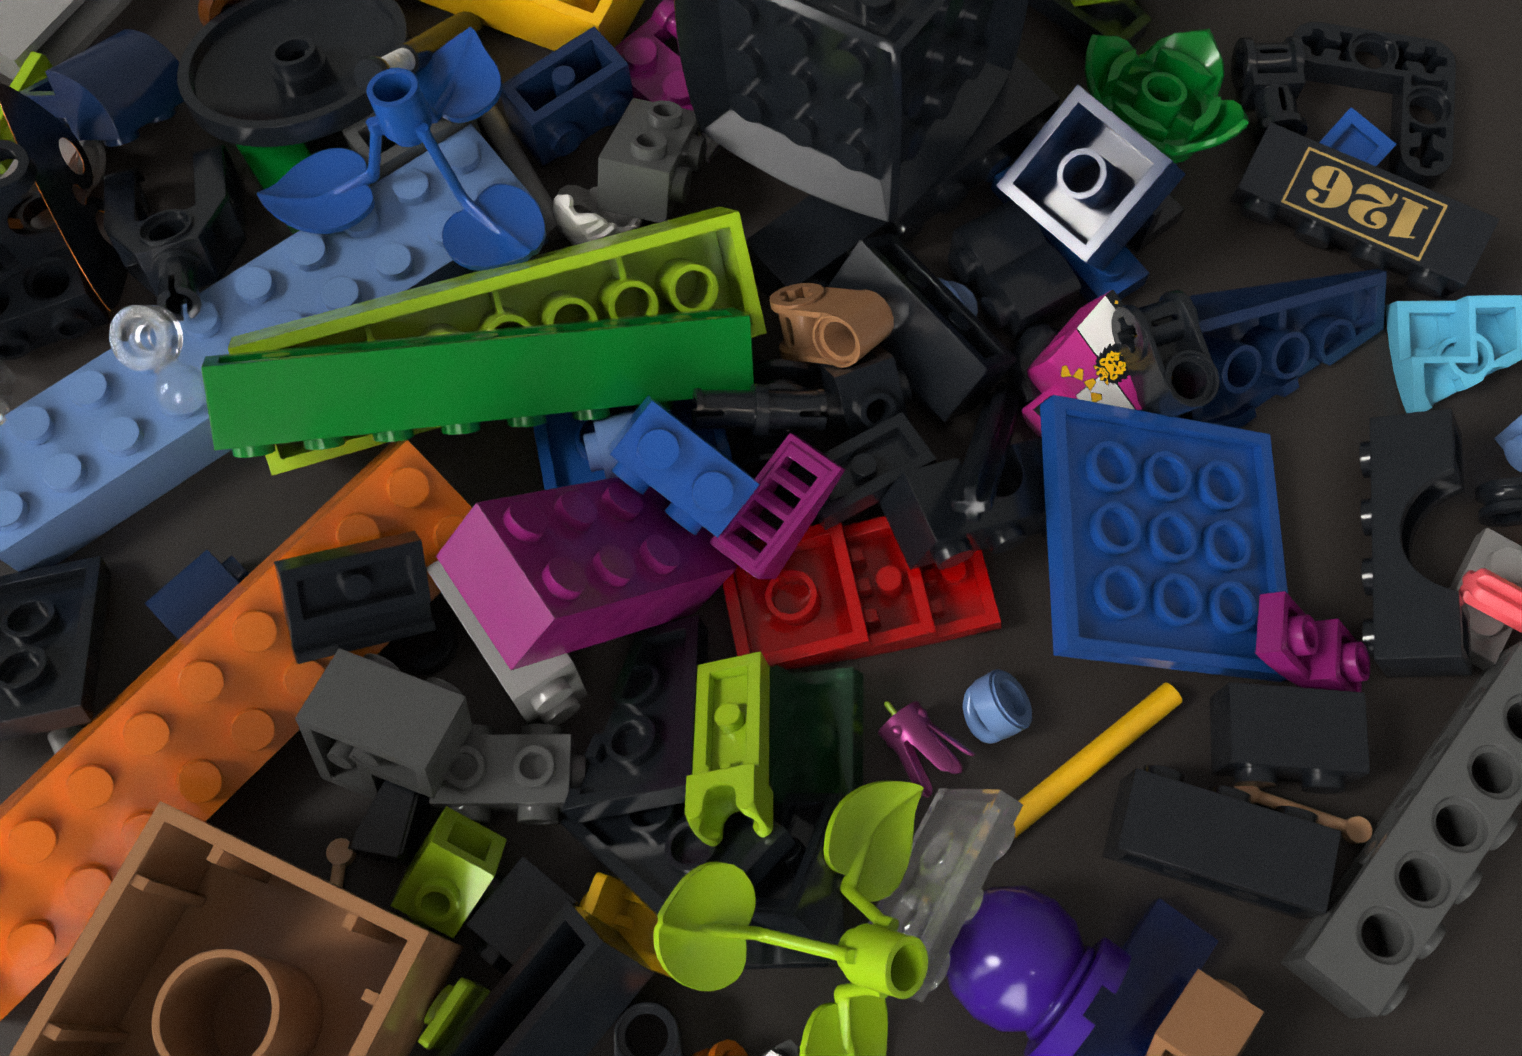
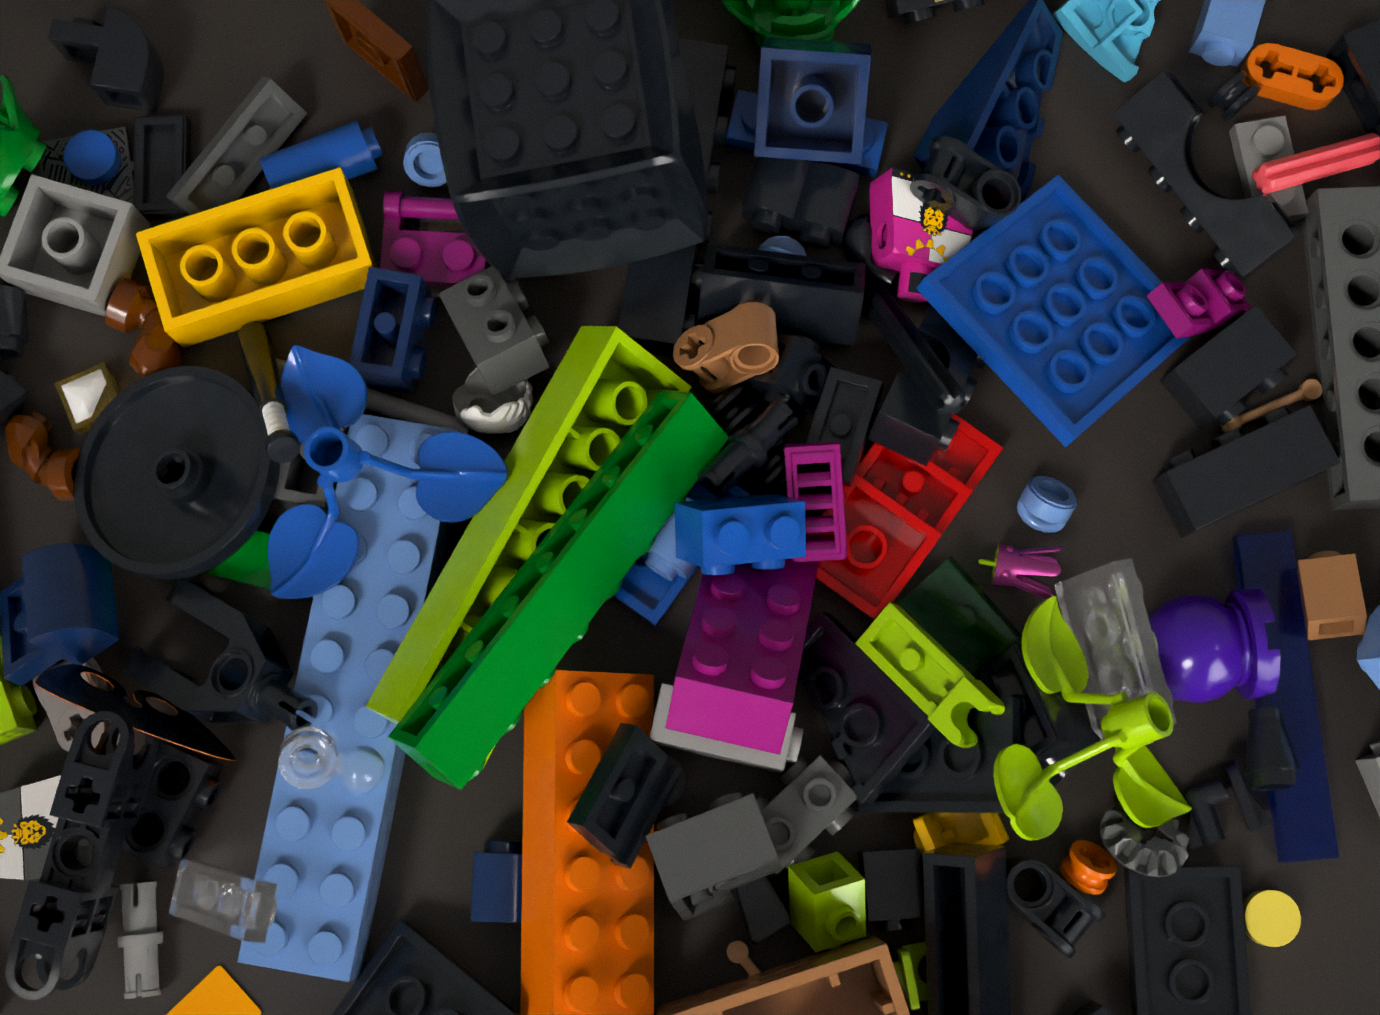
camera: 40 degrees left, 10 degrees up
(1096, 755) = (1127, 479): yellow bar -> none

